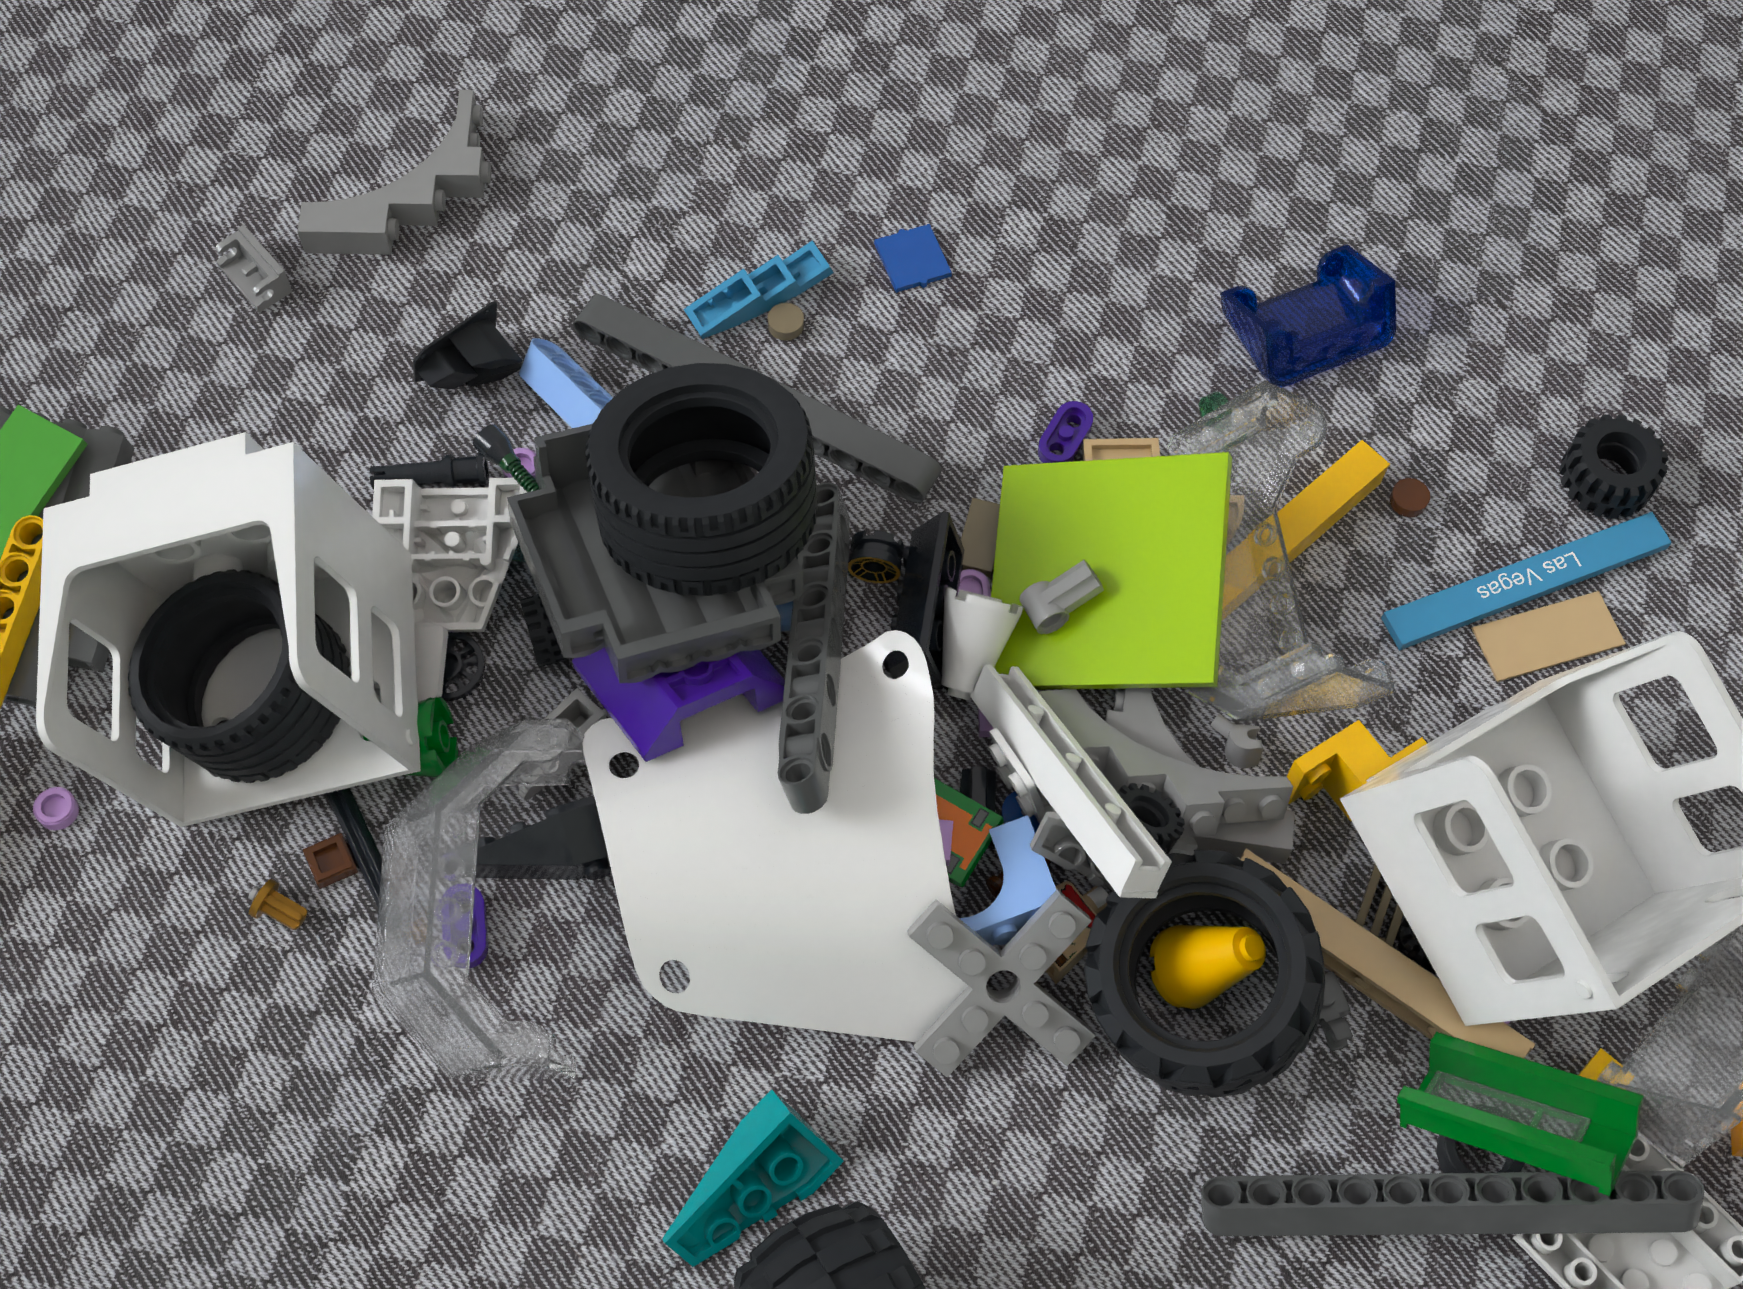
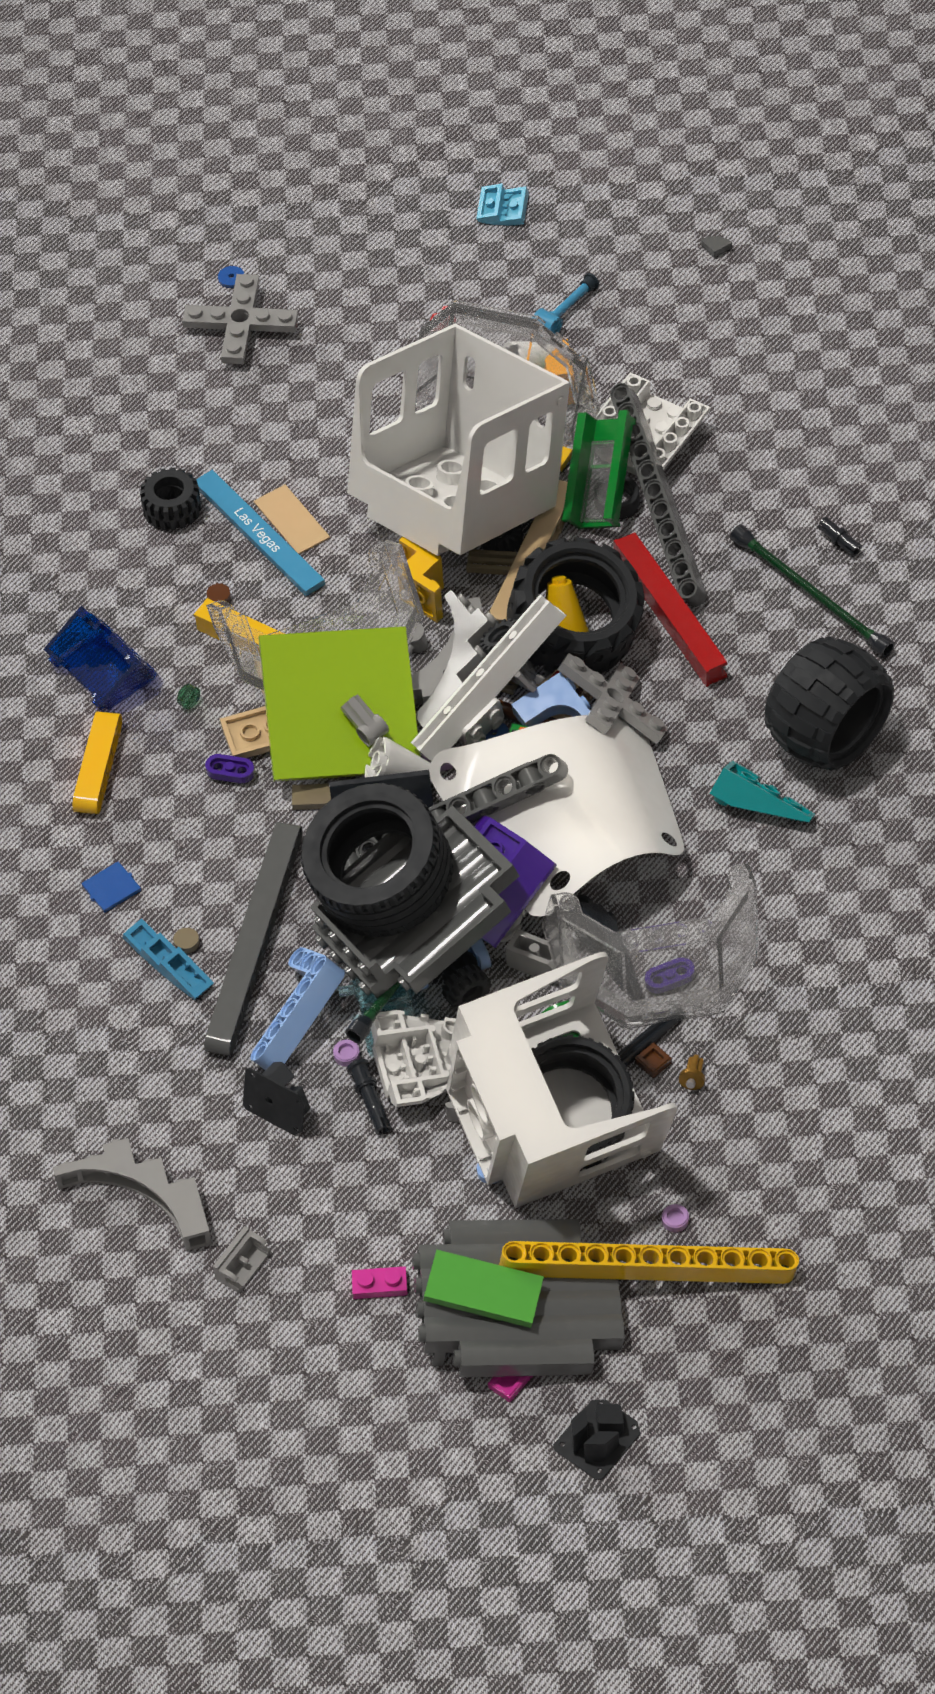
camera: 100 degrees left, 10 degrees down
(148, 415) = (379, 1282): none -> dark pink plate
(1128, 277) = (97, 763): none -> yellow beam
(1195, 1158) = (673, 611): none -> red tile

